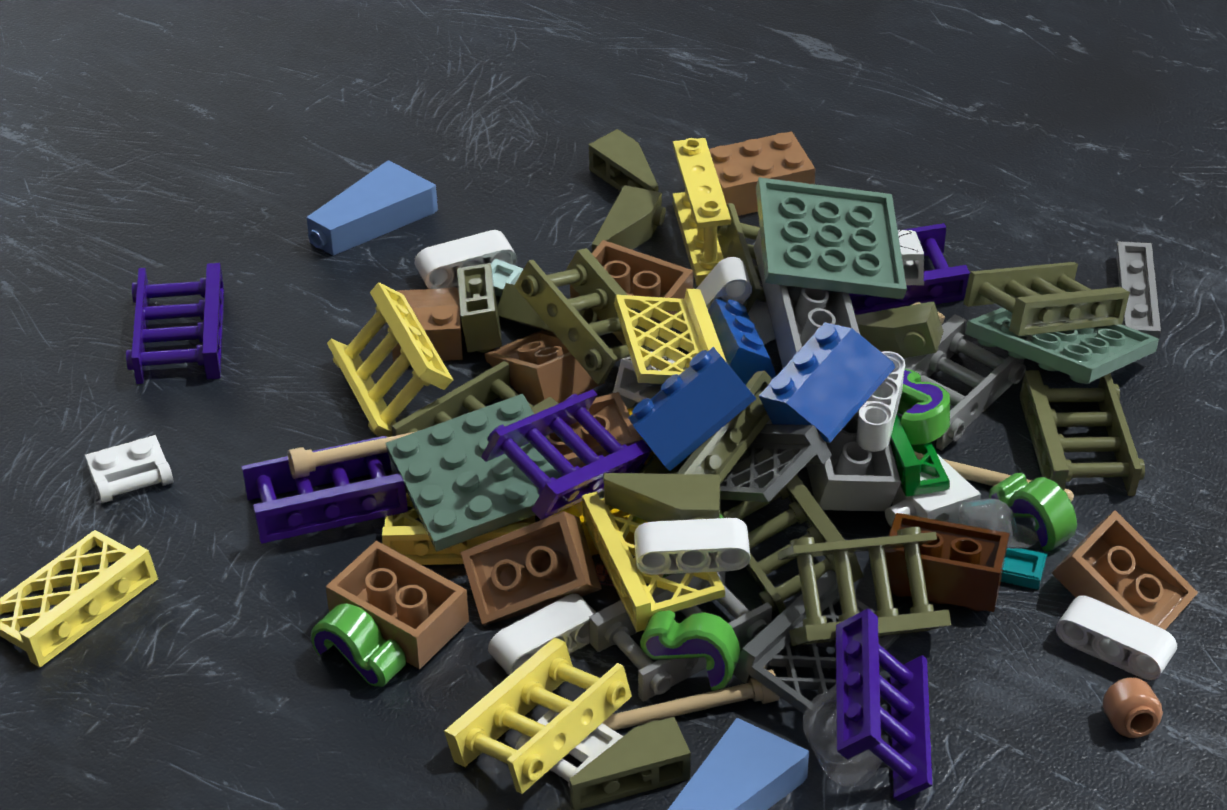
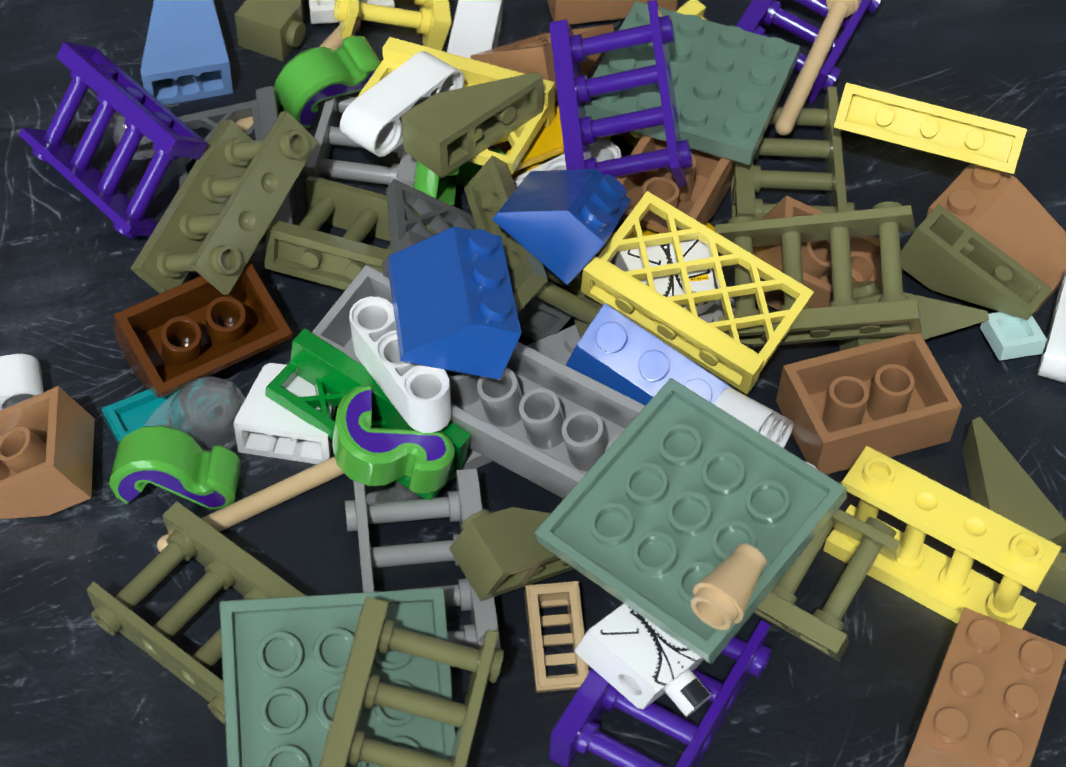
camera: 130 degrees right, 10 degrees up
(863, 187) = (727, 590): none -> tan cone

